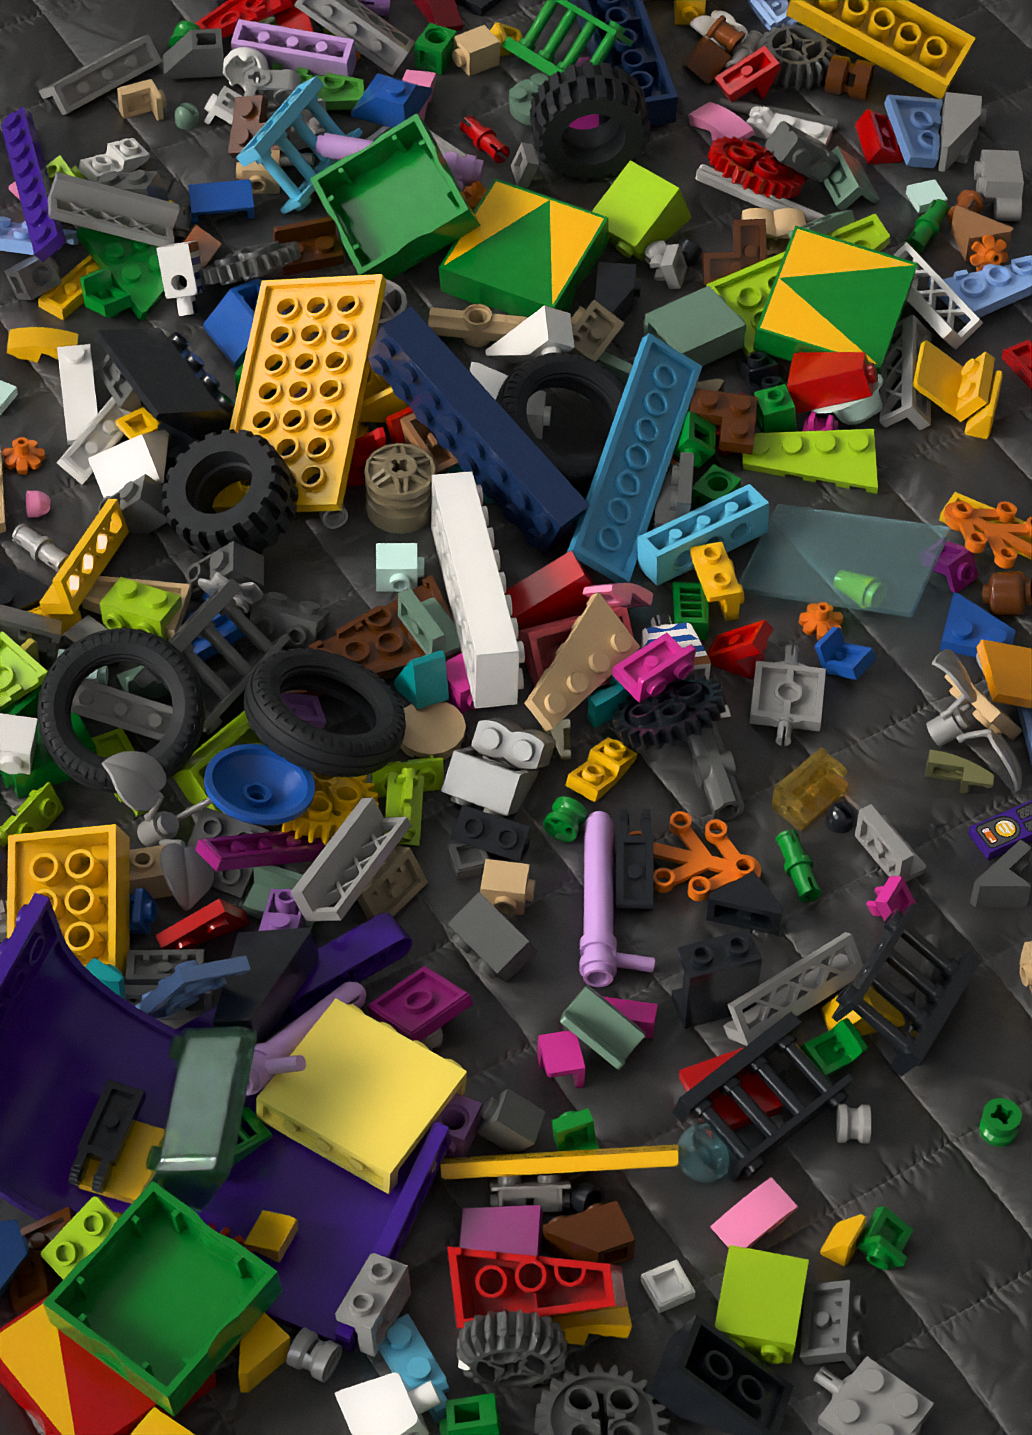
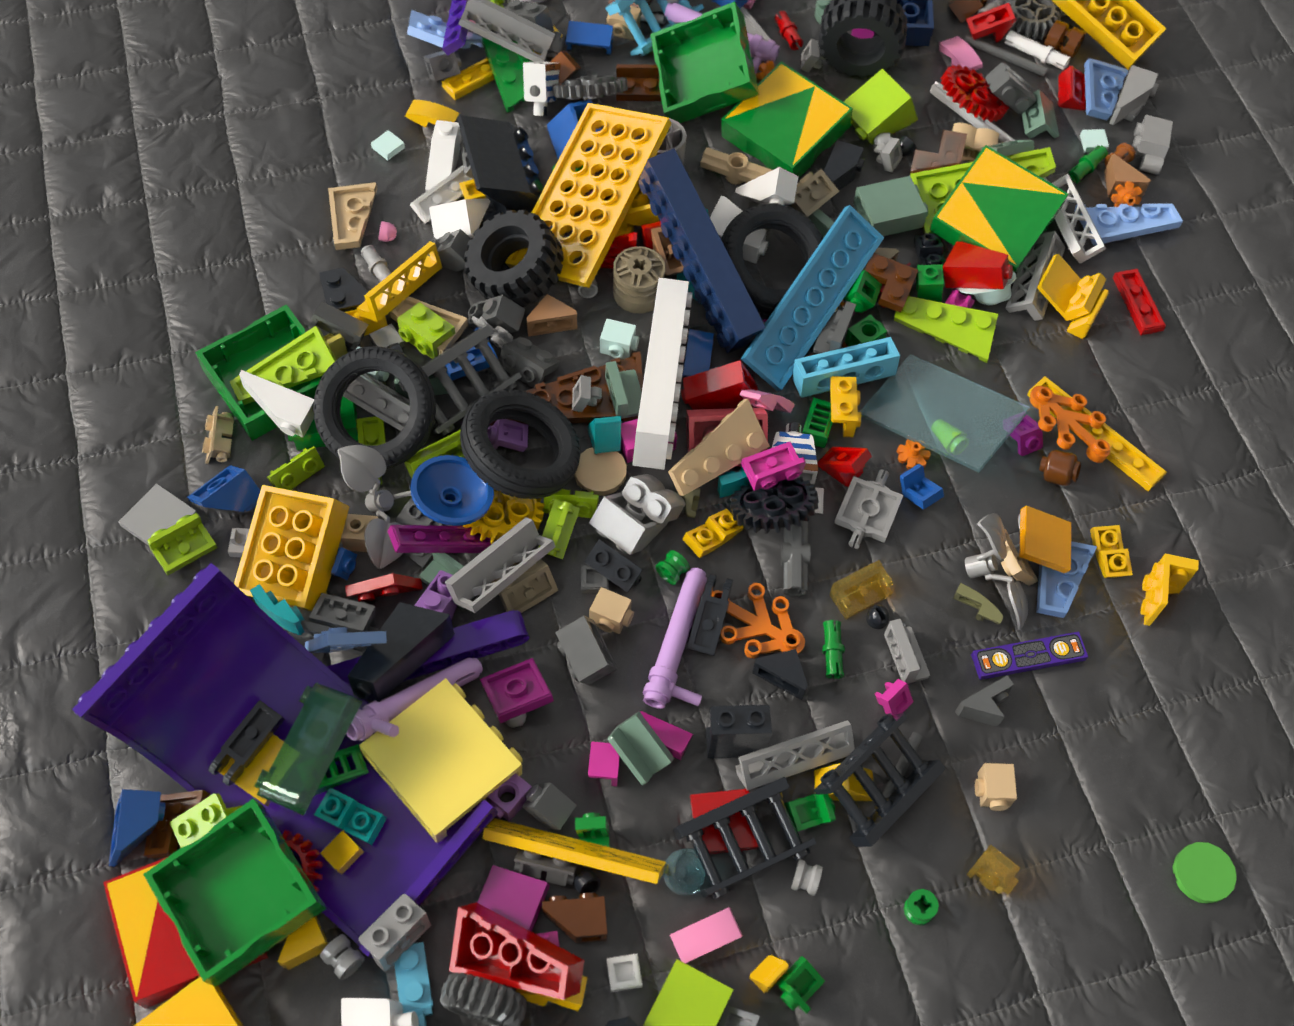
camera: 15 degrees right, 10 degrees up
(23, 455) = (391, 194): orange plant -> none
(101, 294) = (485, 88): green bracket -> none
(260, 1189) = (350, 816): none -> teal slope
(300, 560) = (551, 317): none -> medium nougat slope
(381, 639) = (584, 394): none -> light grey tile
(512, 557) = (697, 352): none -> blue slope
(765, 122) = (993, 57): white hinge -> none
(821, 99) = (1033, 48): none -> white pin
(969, 625) = (1026, 489): blue wing -> none

